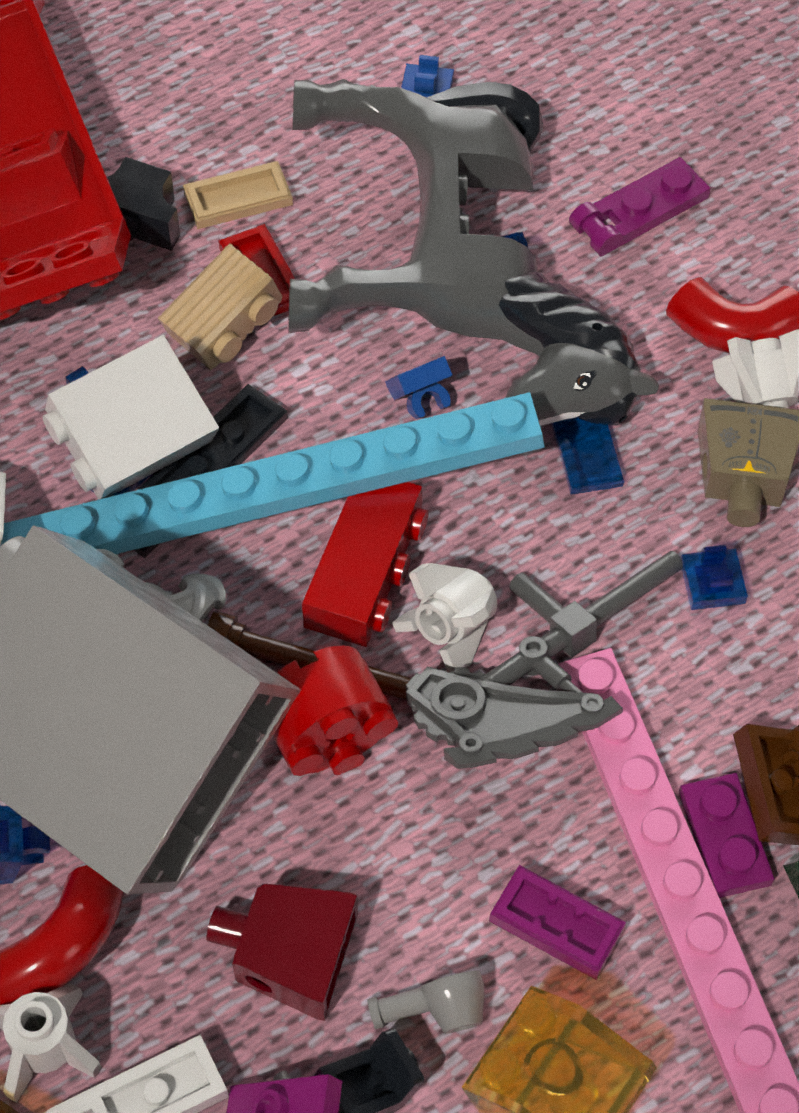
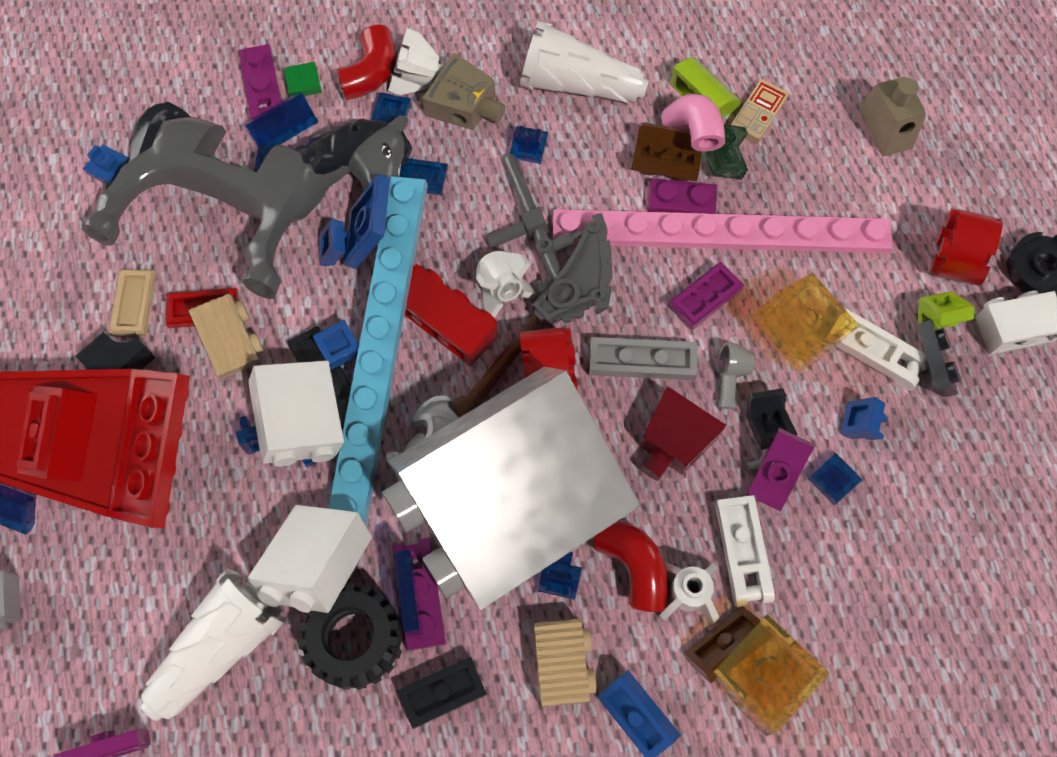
camera: 70 degrees left, 10 degrees up
(259, 436) = (337, 344): none -> blue tile
(405, 859) = (643, 358): none -> light grey plate
(456, 396) = (367, 221): none -> blue plate
(584, 249) = (281, 122): none -> clear blue tile
(674, 251) = (303, 79): none -> green tile
(681, 377) = (390, 107): none -> clear blue tile

